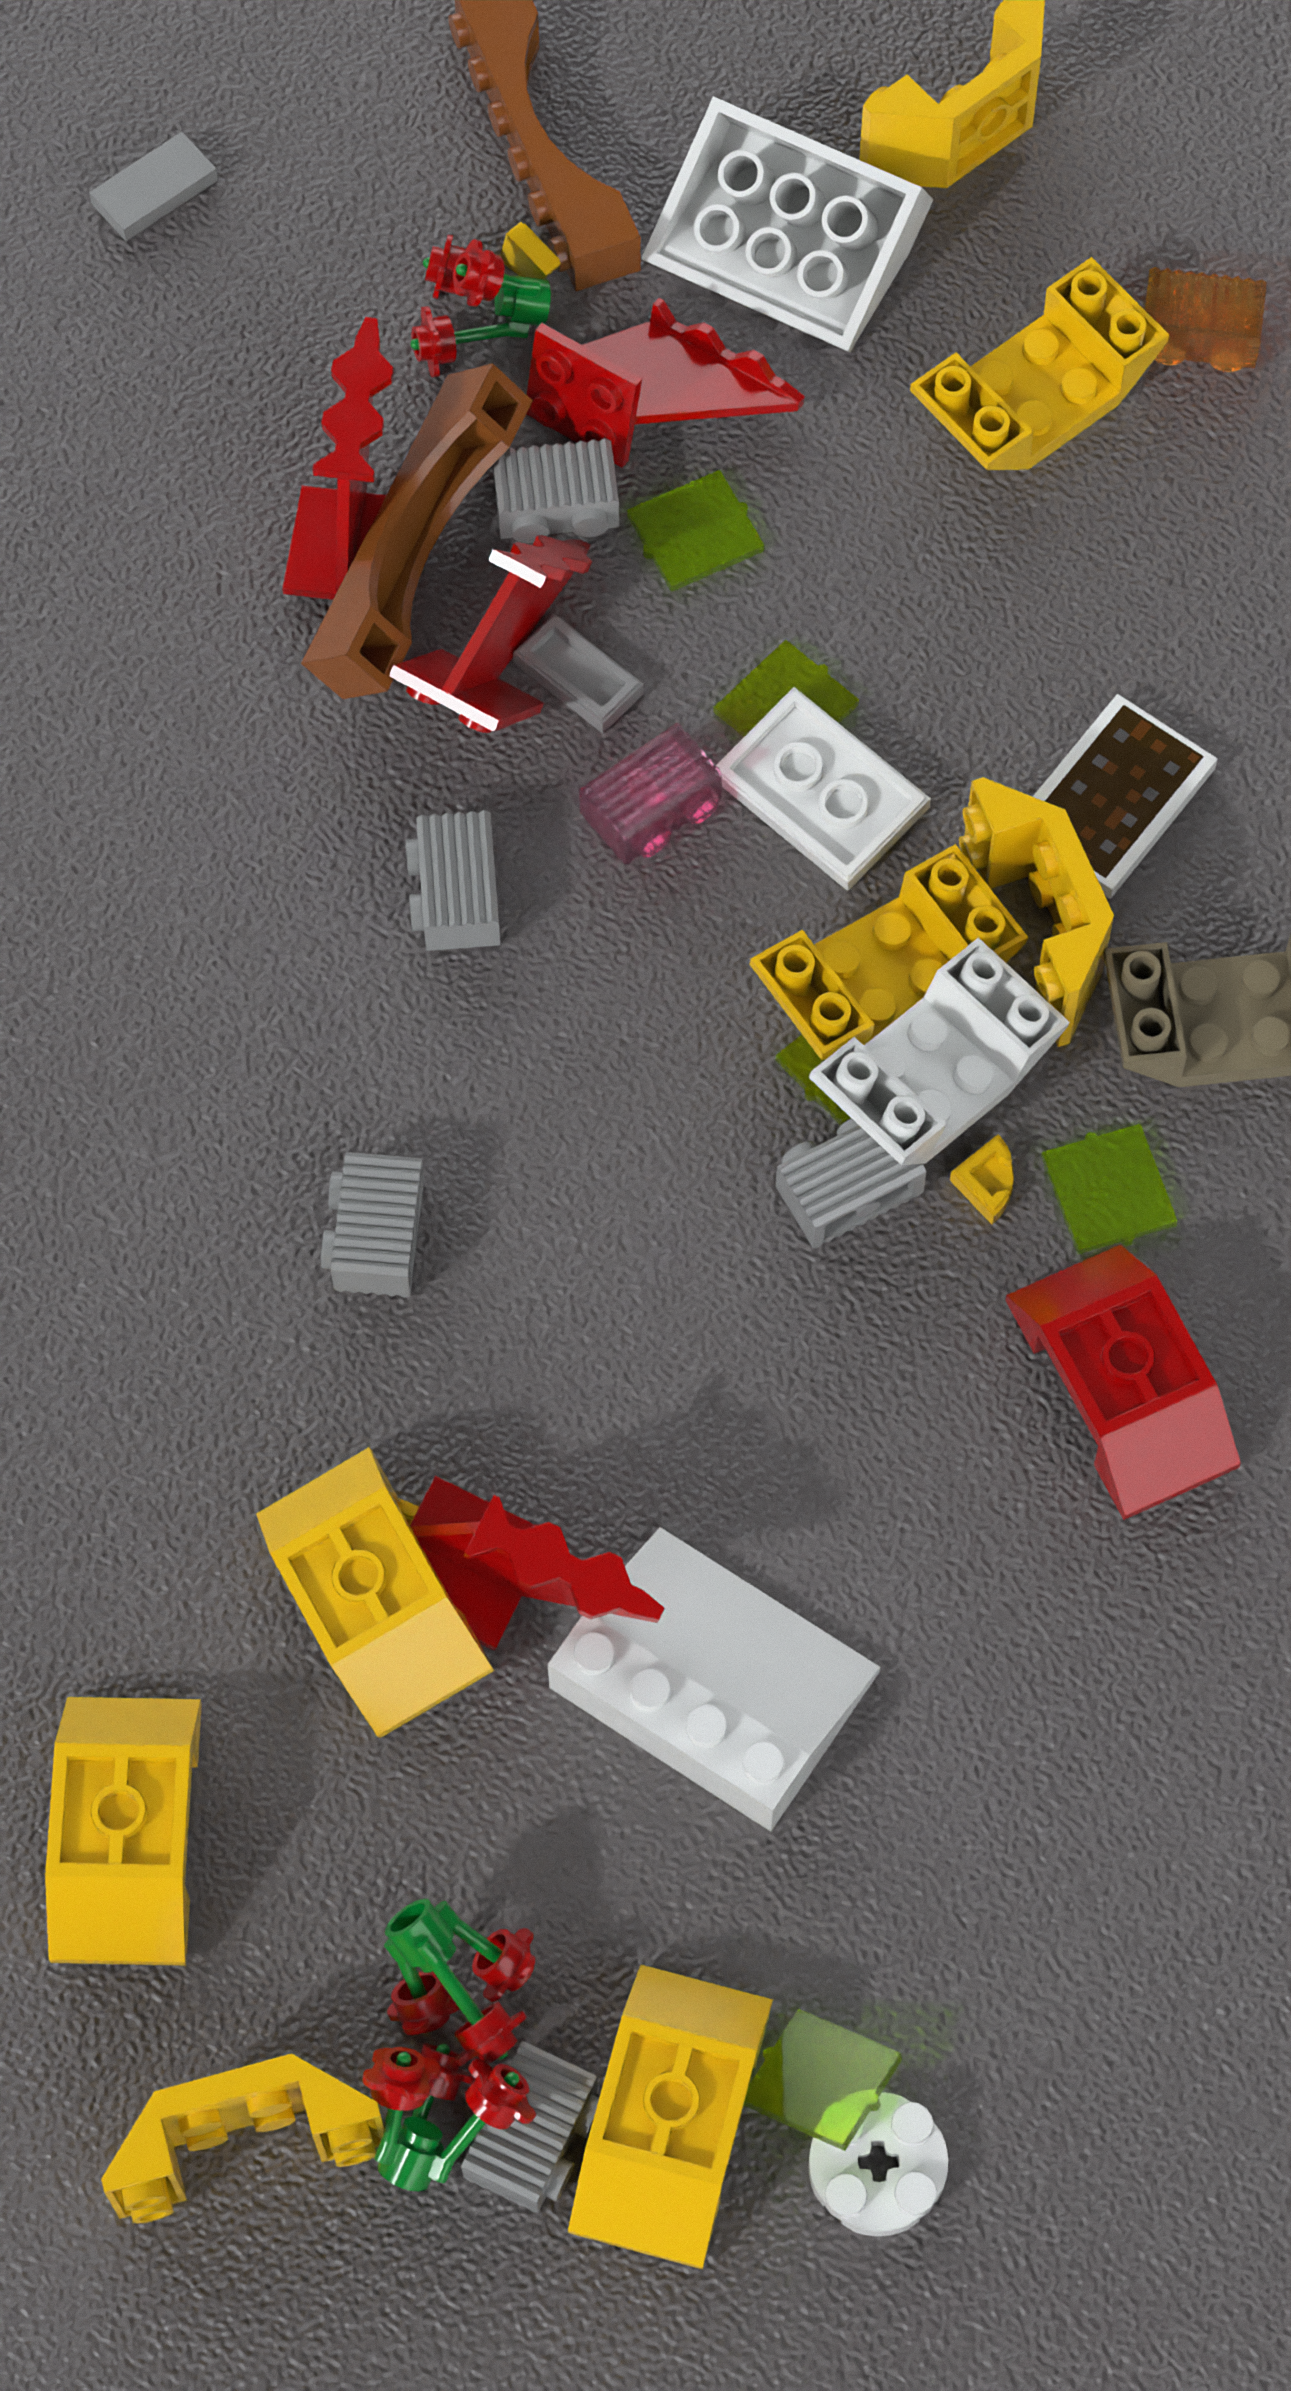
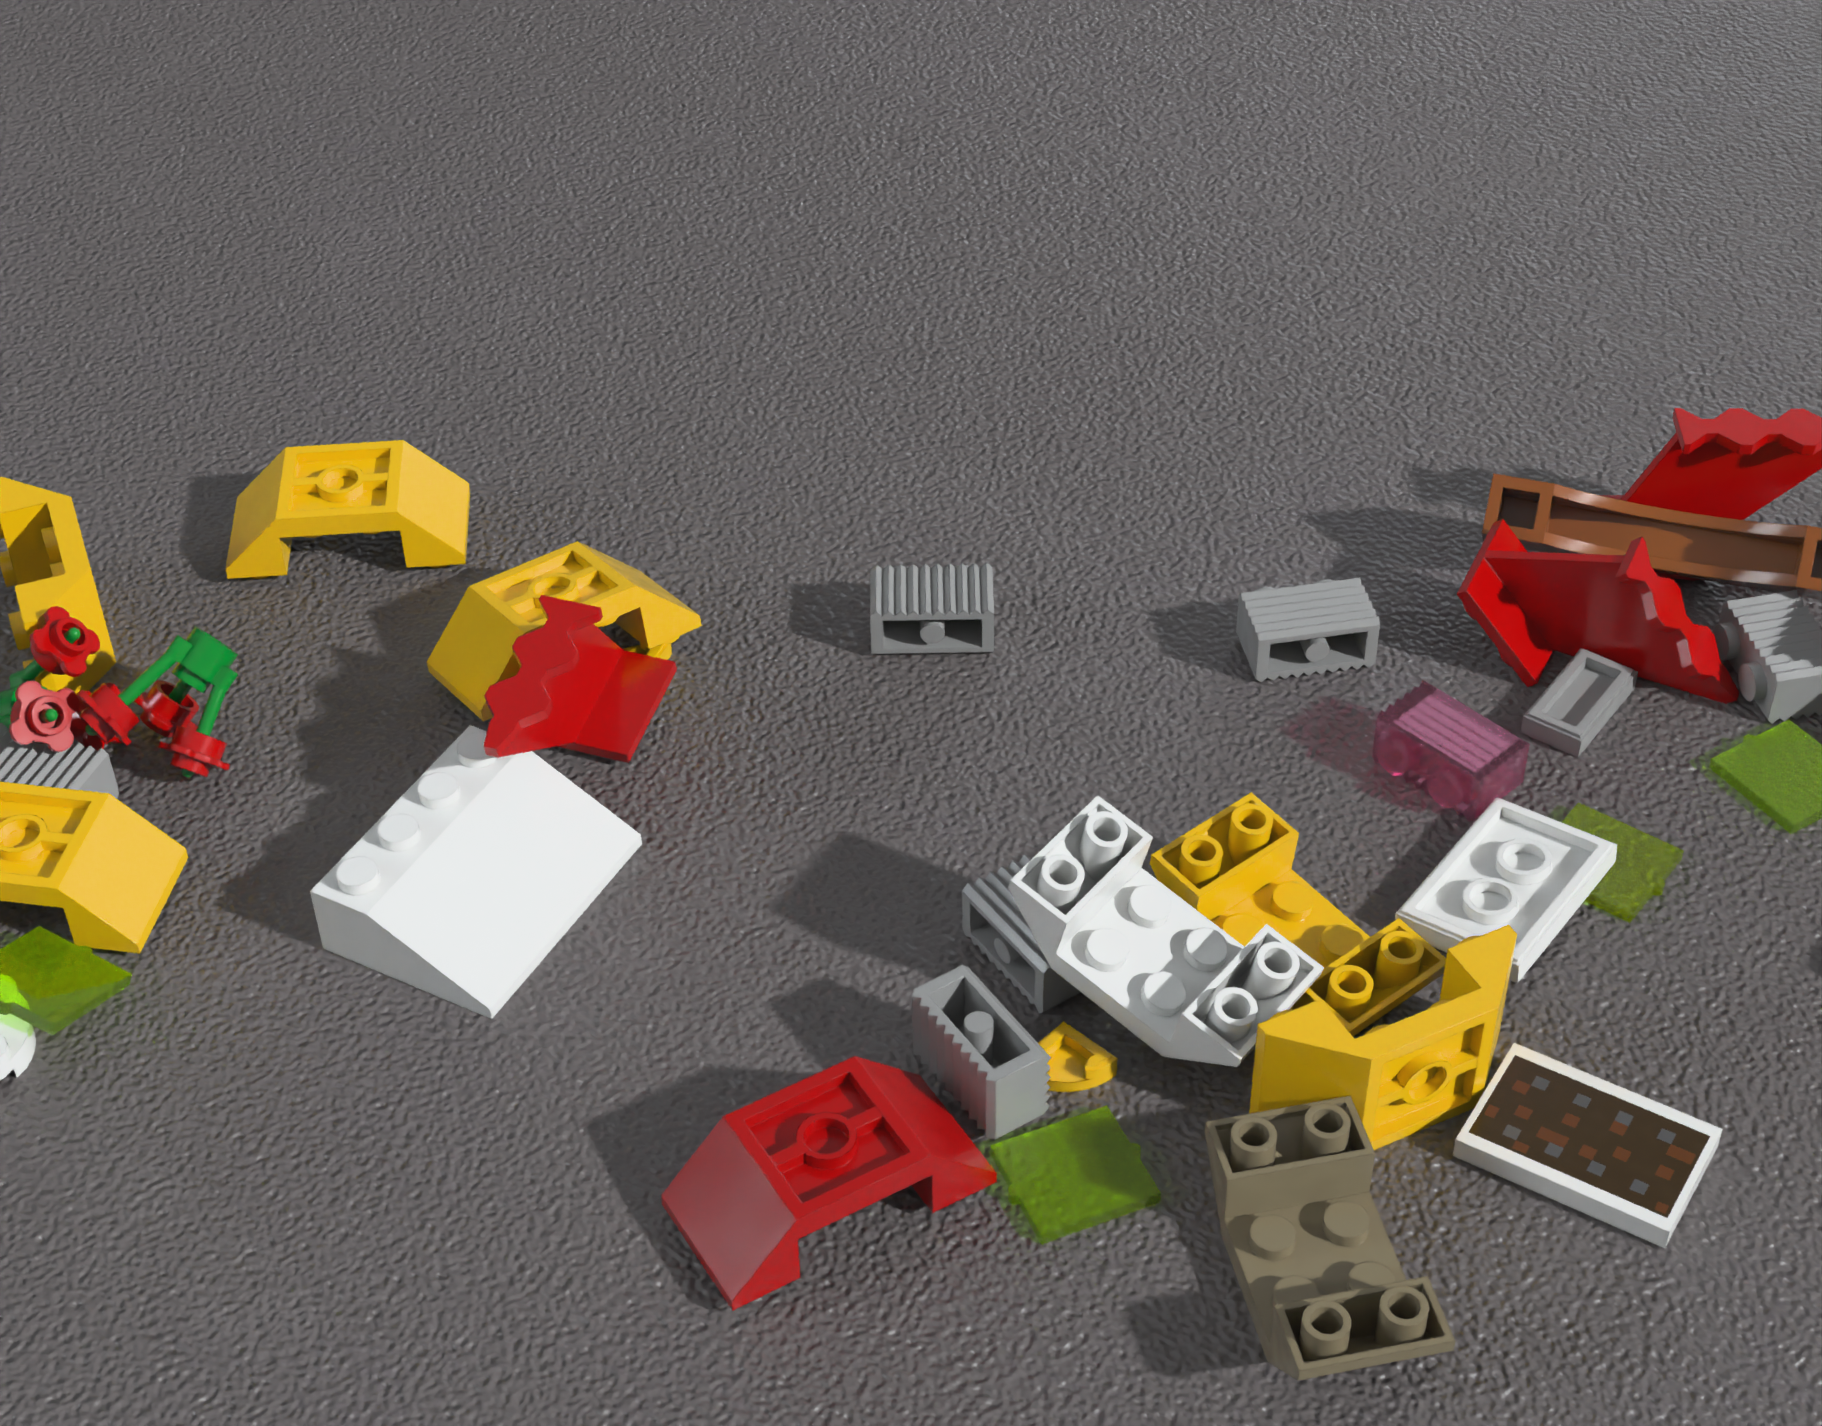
camera: 85 degrees right, 25 degrees down
(1006, 1236) = (979, 1052): none -> light grey brick

